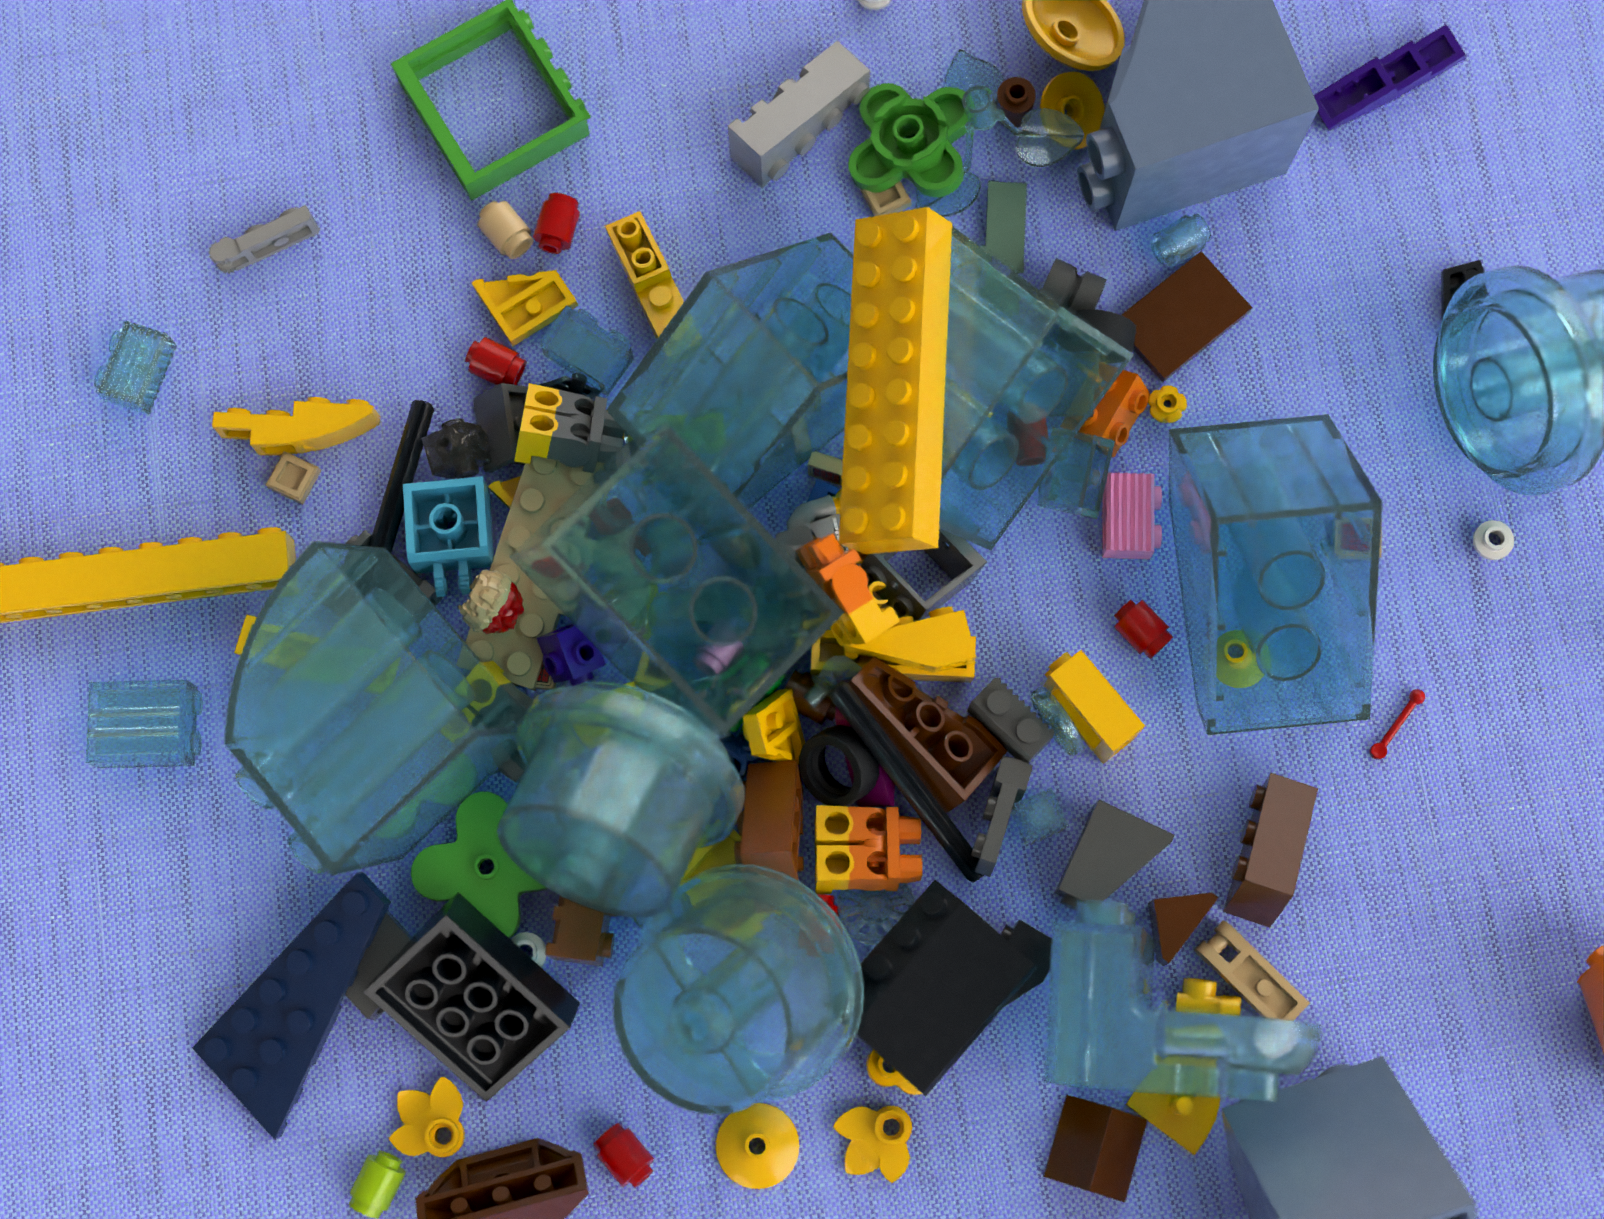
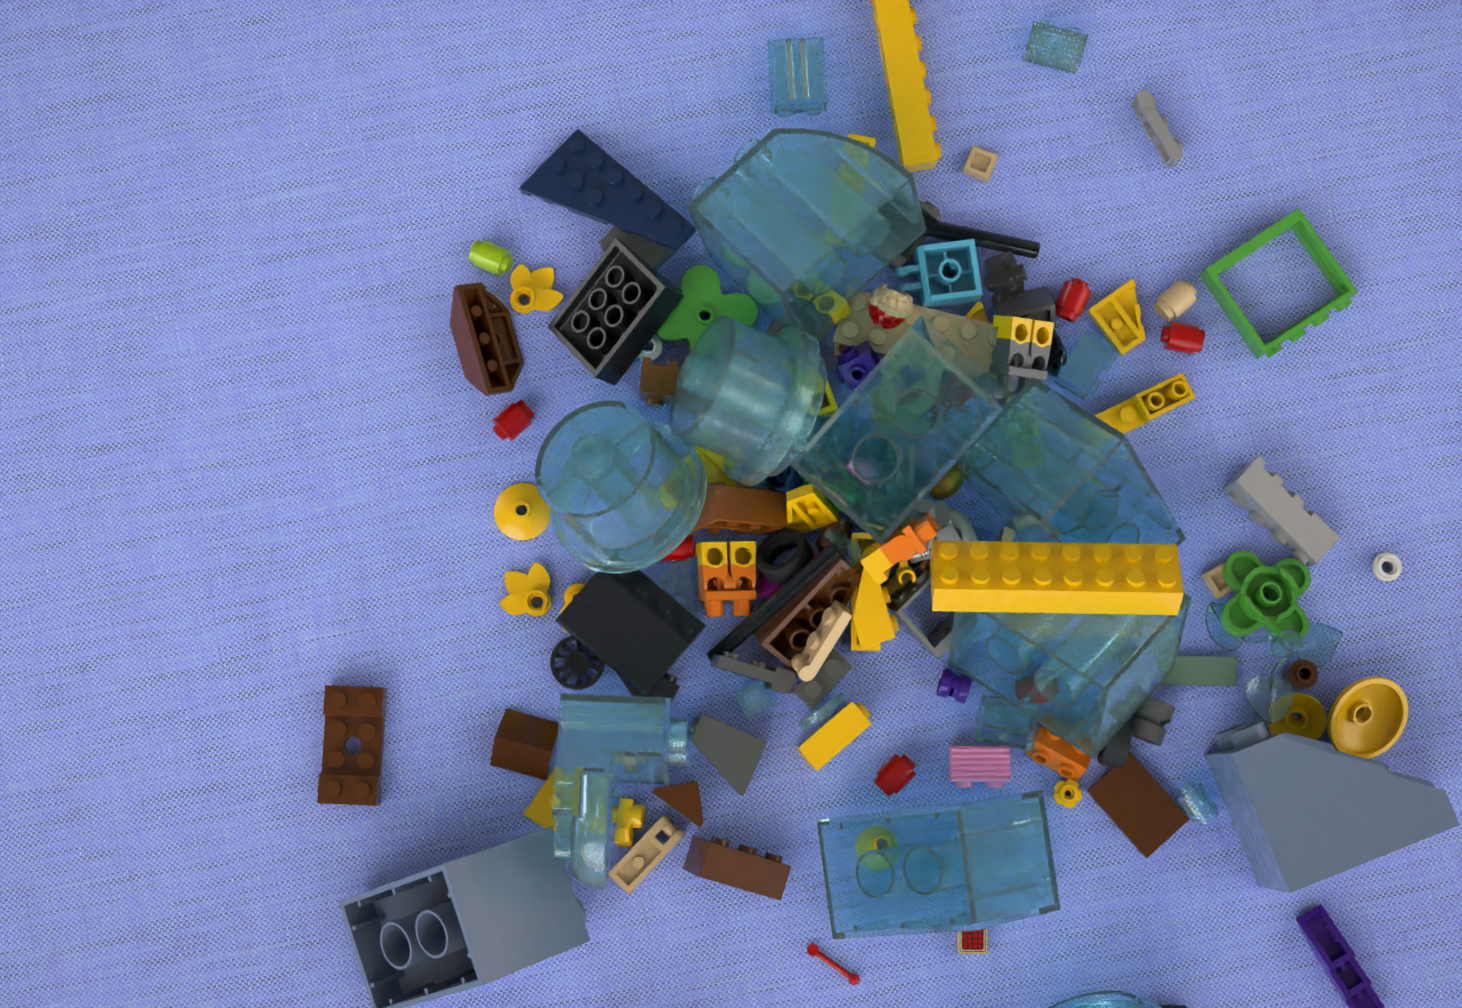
camera: 85 degrees right, 5 degrees up
(311, 428) = (1017, 173): yellow slope -> none
(963, 715) = (821, 641): none -> tan plate
(981, 1070) = (577, 663): none -> black wheel
(1022, 544) = (954, 685): none -> dark purple wheel

